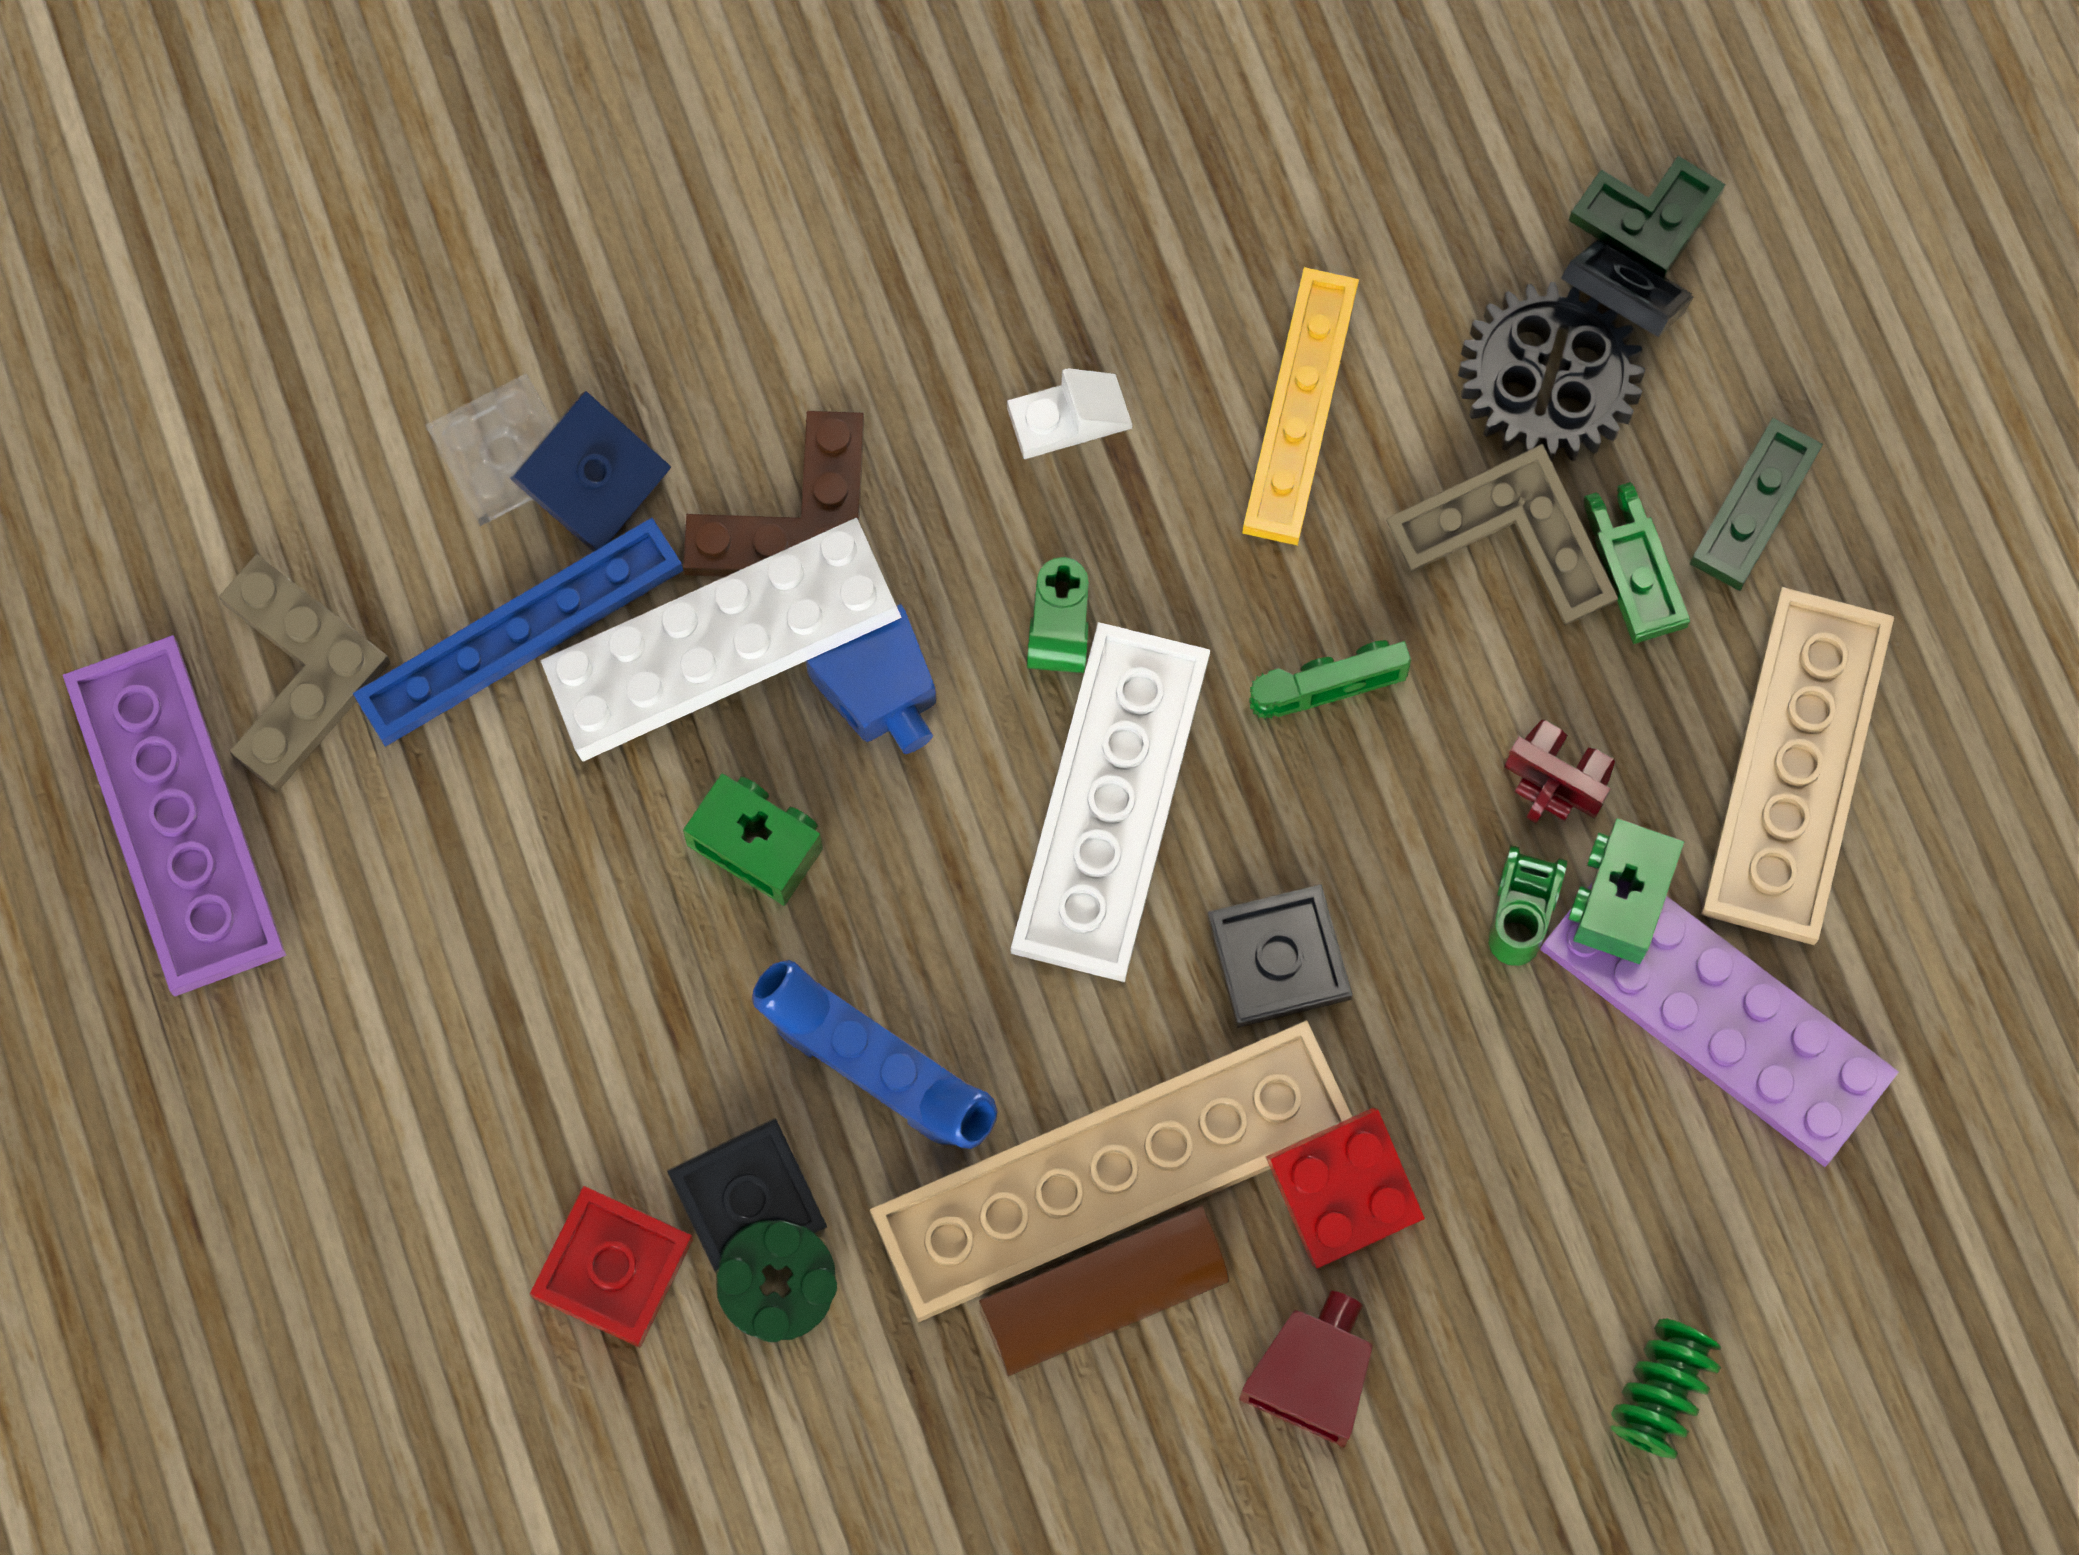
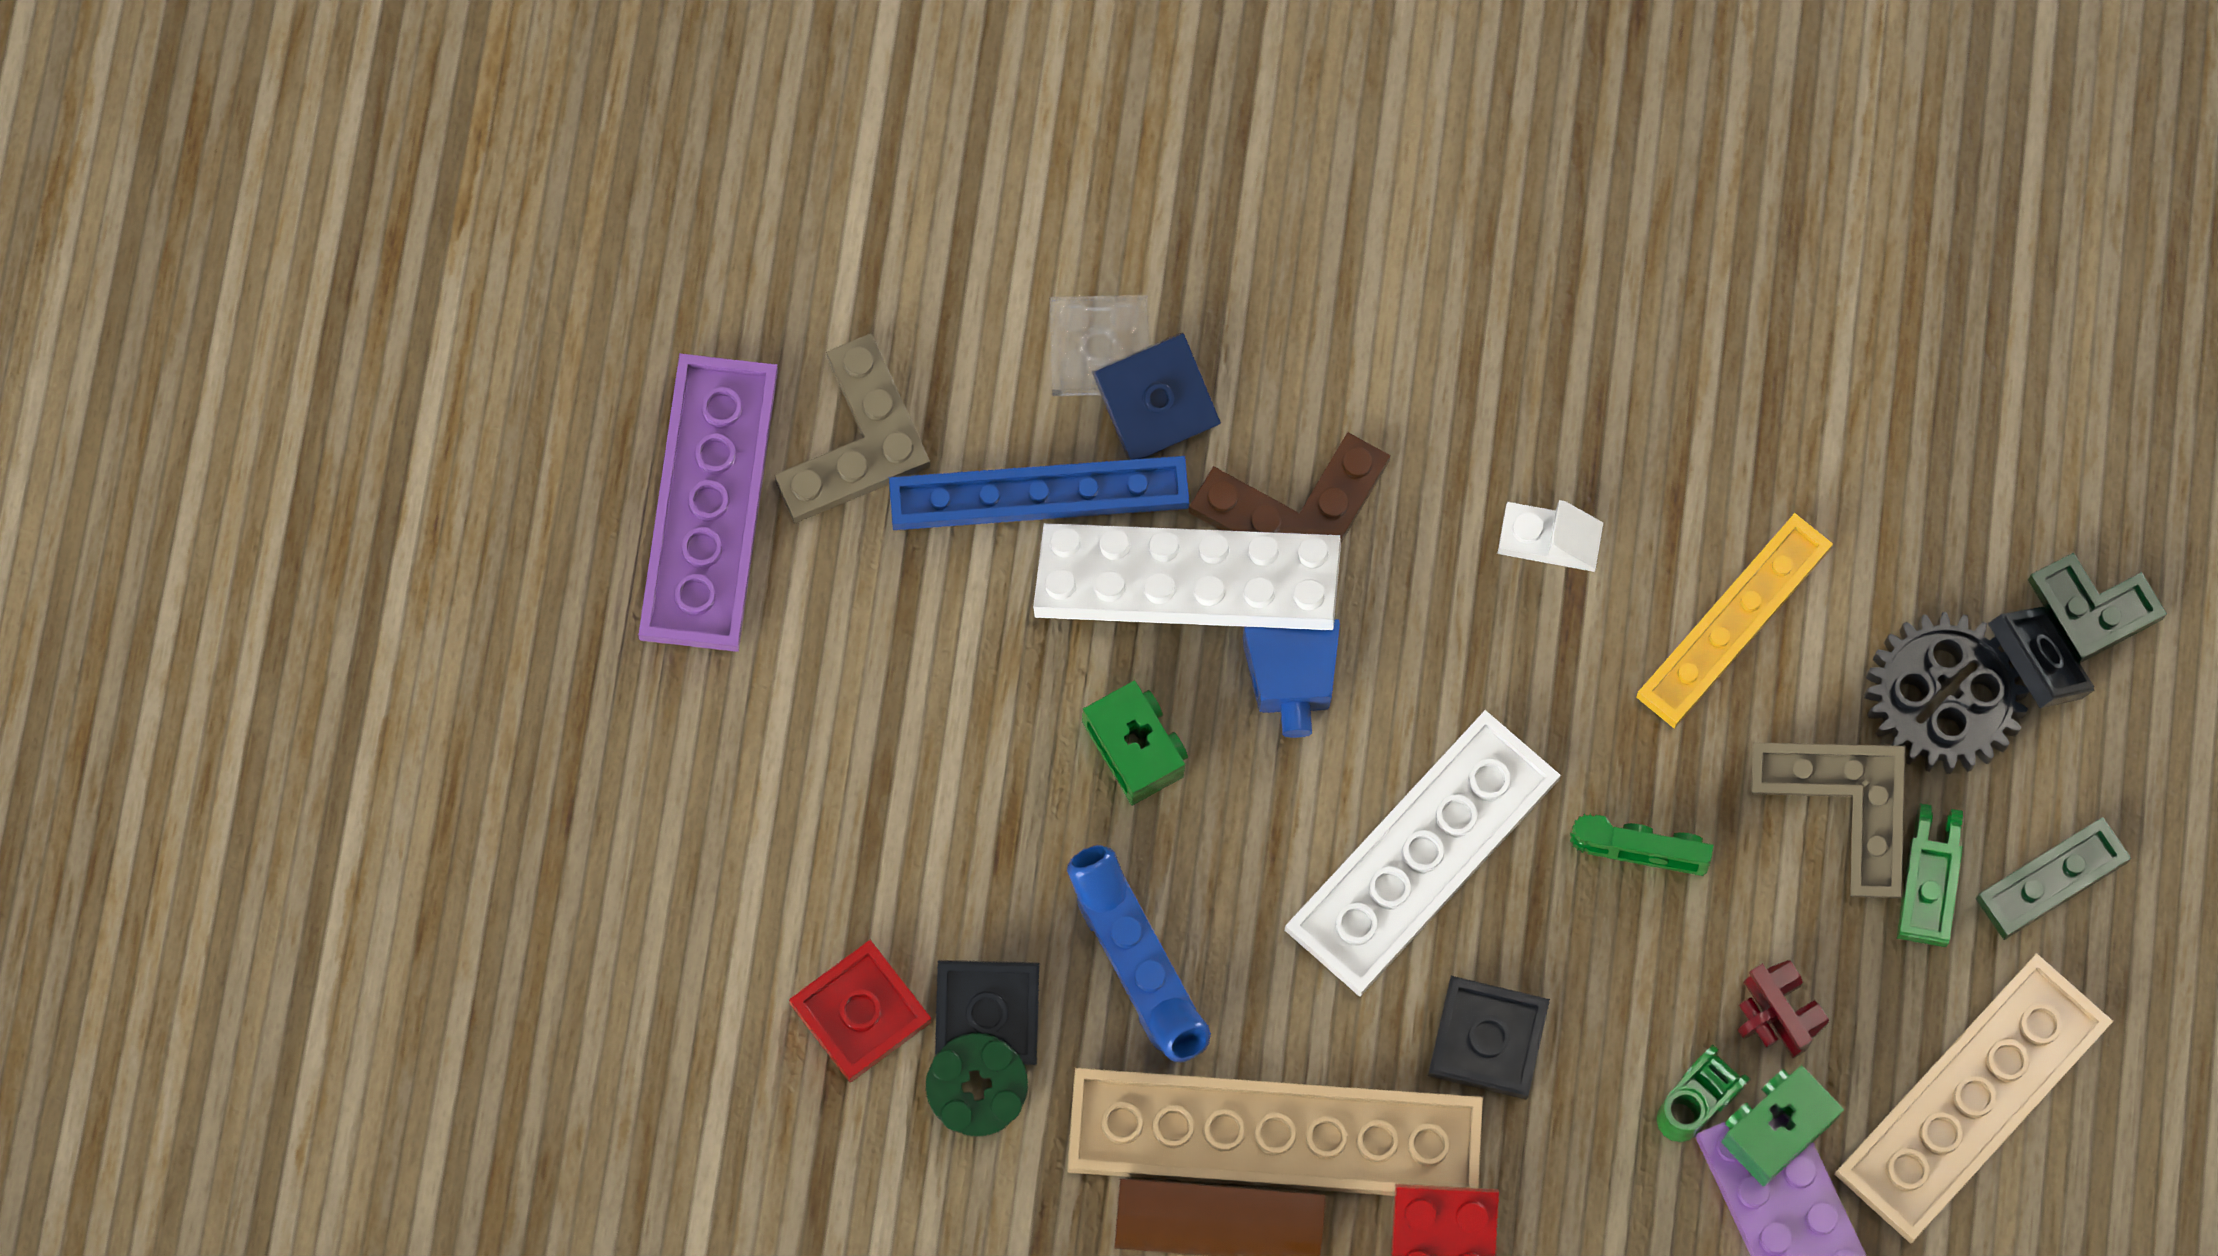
camera: 25 degrees right, 0 degrees up
(1059, 624) = (1453, 698): piece -> none

